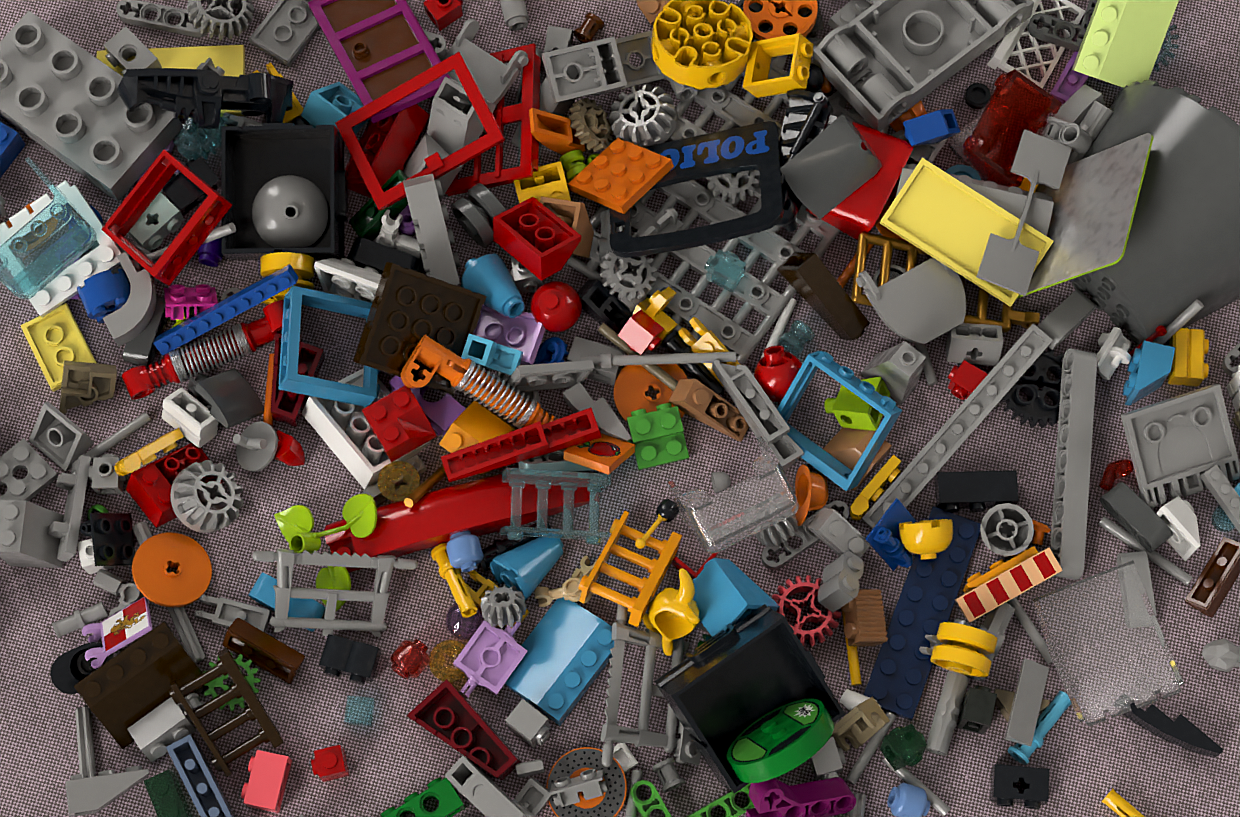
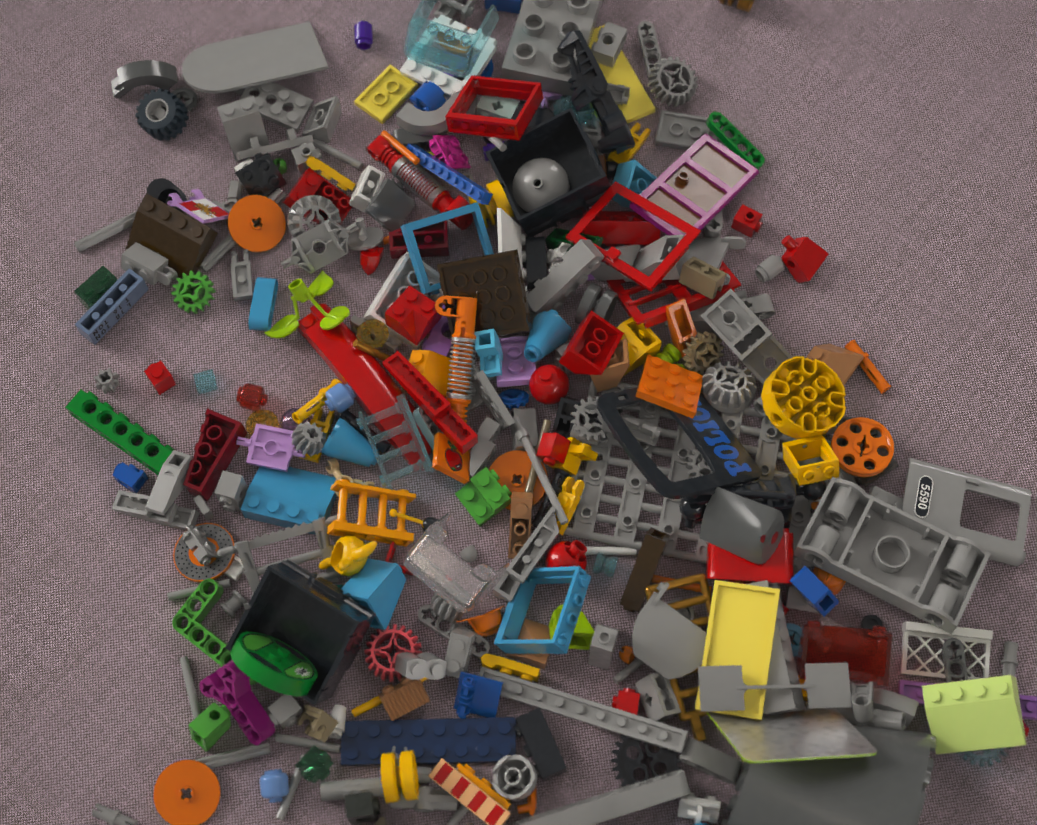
camera: 65 degrees right, 5 degrees down
(79, 619) = (203, 185): light grey pin -> none
(86, 383) = (365, 118): dark tan slope -> none
(95, 793) = (85, 242): light grey slope -> none
(155, 354) = (401, 148): none -> orange bar
(239, 521) = (331, 235): none -> light grey plate
(239, 688) = (186, 295): dark brown fence -> none
(263, 650) = (223, 303): reddish brown slope -> none
(266, 781) = (133, 343): coral brick -> none
(350, 659) = (238, 359): black brick -> none
(379, 596) = (260, 292): light grey piece -> none
(509, 79) = (702, 277): none -> dark tan hinge
(588, 28) = (785, 326): reddish brown bush -> none
(725, 270) = (631, 489): clear light blue brick -> none
(926, 536) = (482, 716): yellow cylinder -> none

